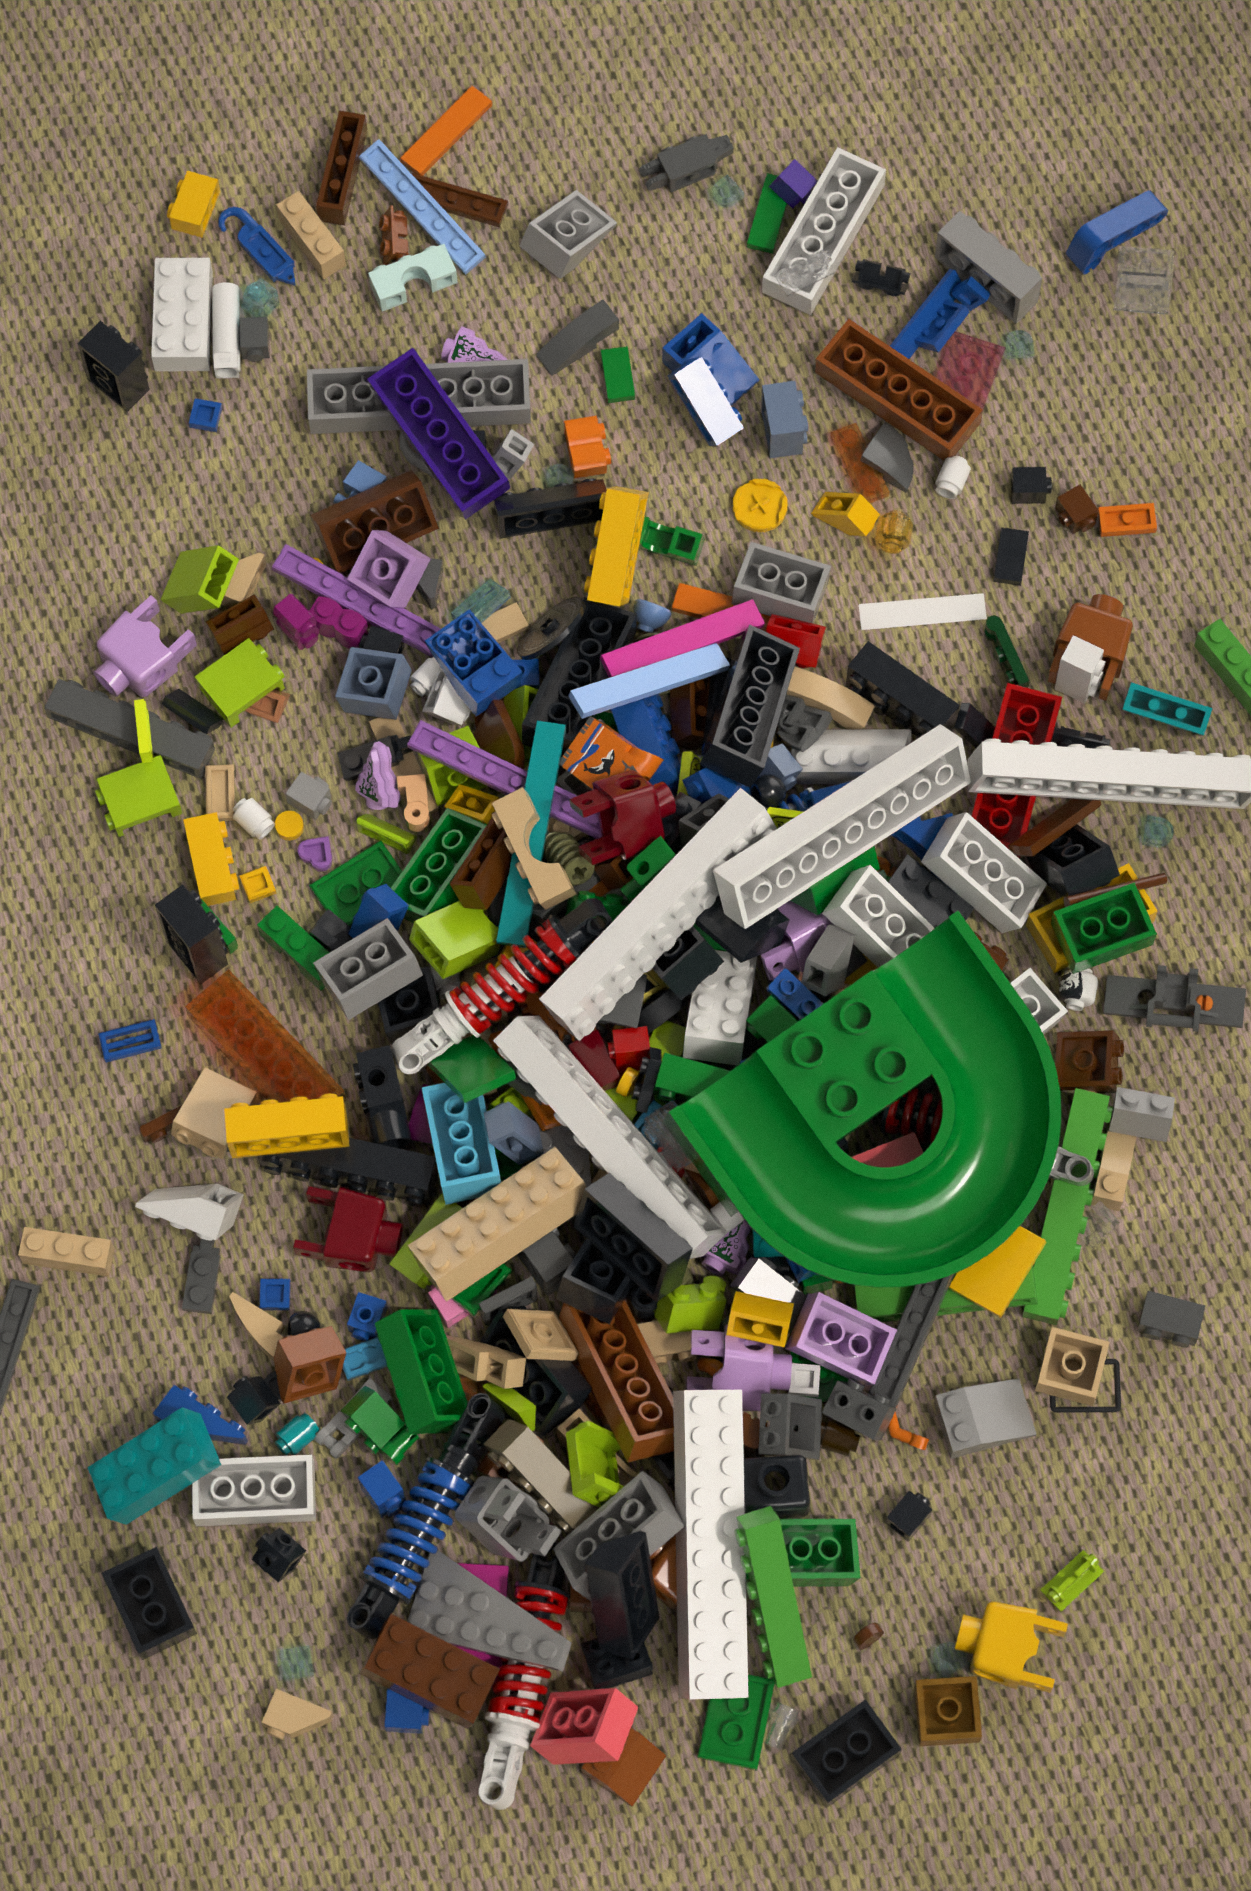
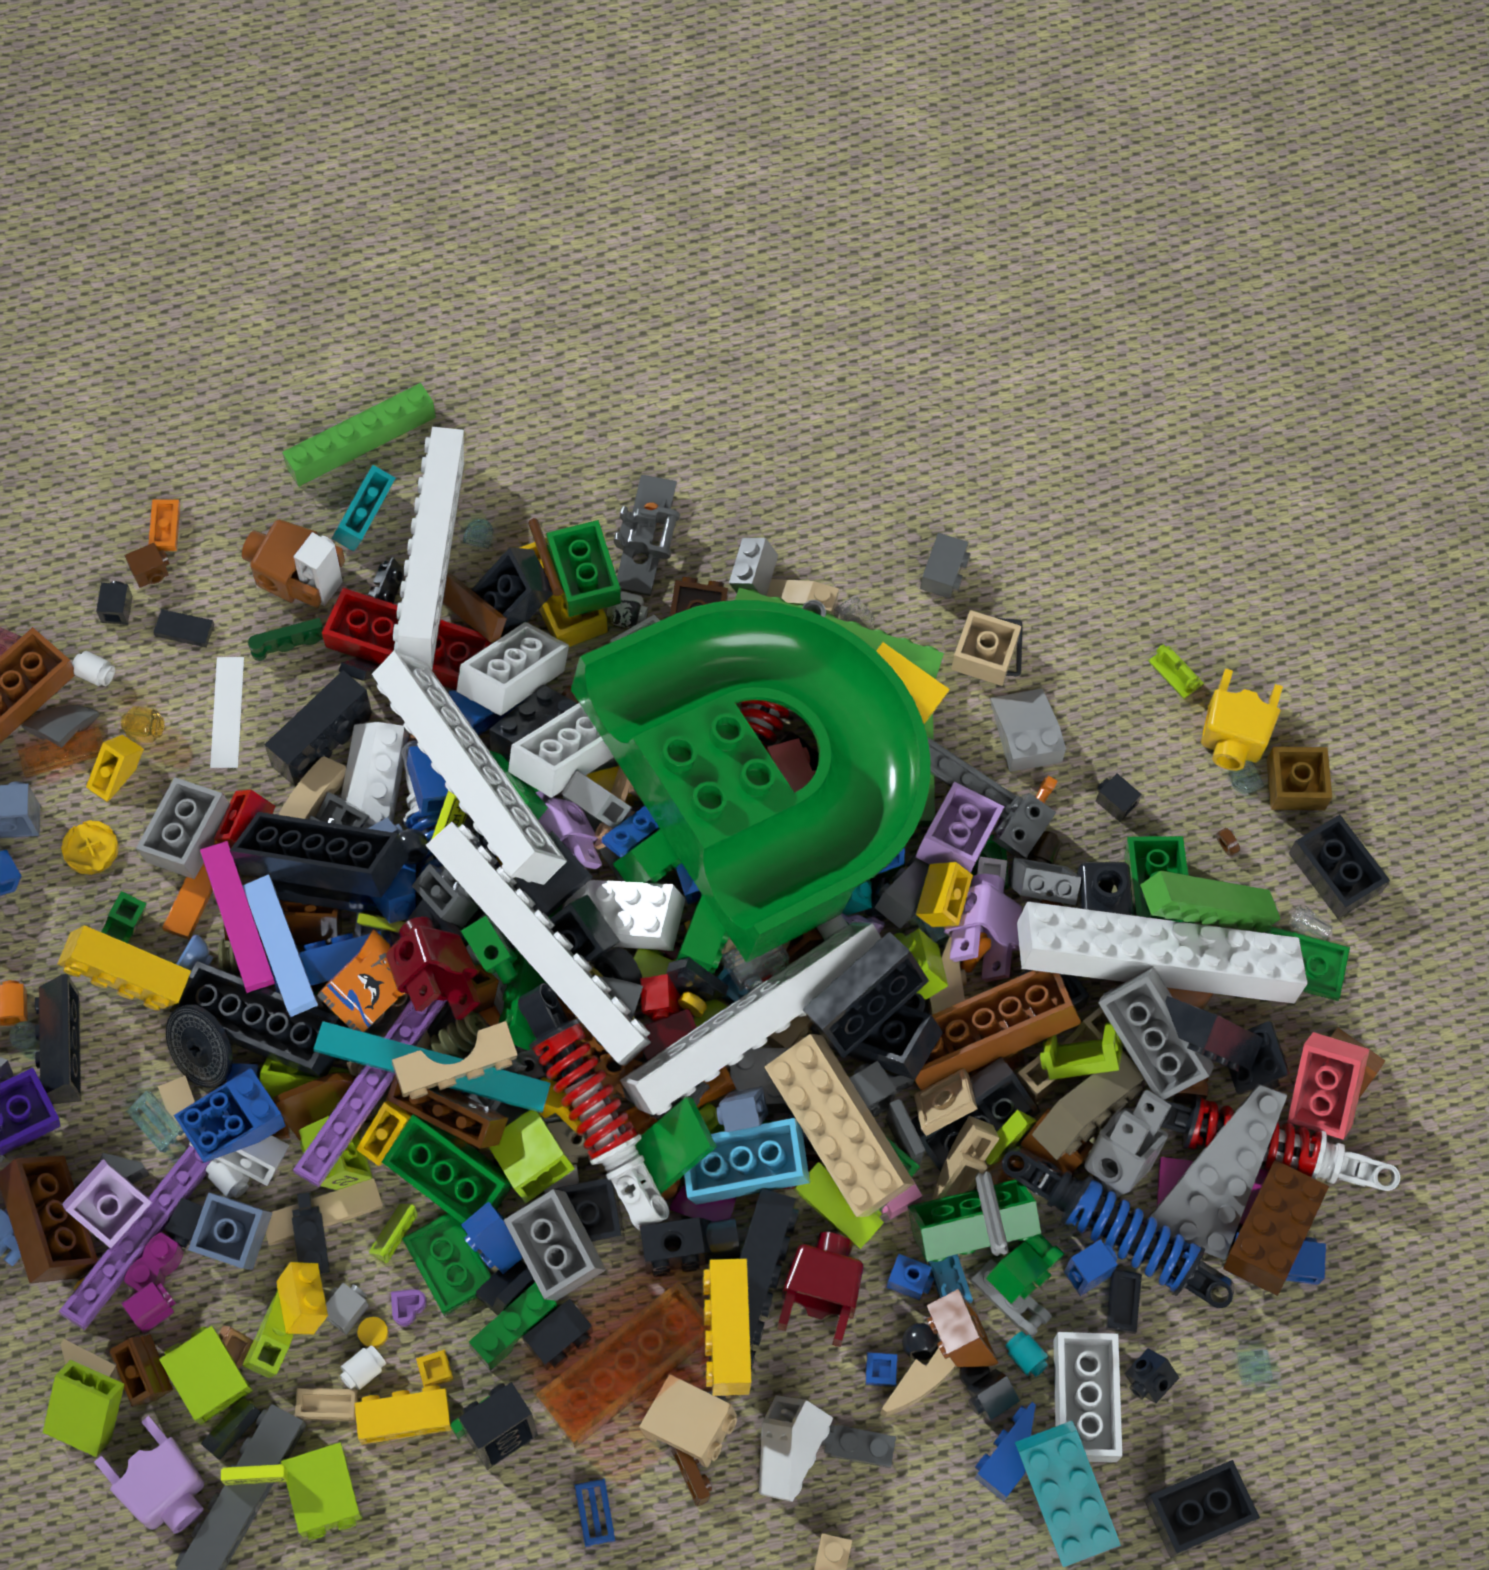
camera: 90 degrees left, 5 degrees down
(284, 738) = (269, 1343): none -> lime slope
(292, 990) = (558, 1335): none -> black brick
(293, 1716) = (1310, 1370): tan slope -> none
(311, 753) = (302, 1298): none -> yellow brick
(355, 1531) = (1123, 1302): none -> black tile
(378, 780) = (341, 1232): lavender rock -> none
(414, 1371) = (991, 1213): none -> light grey axle
(417, 809) = (367, 1194): light nougat leg -> none

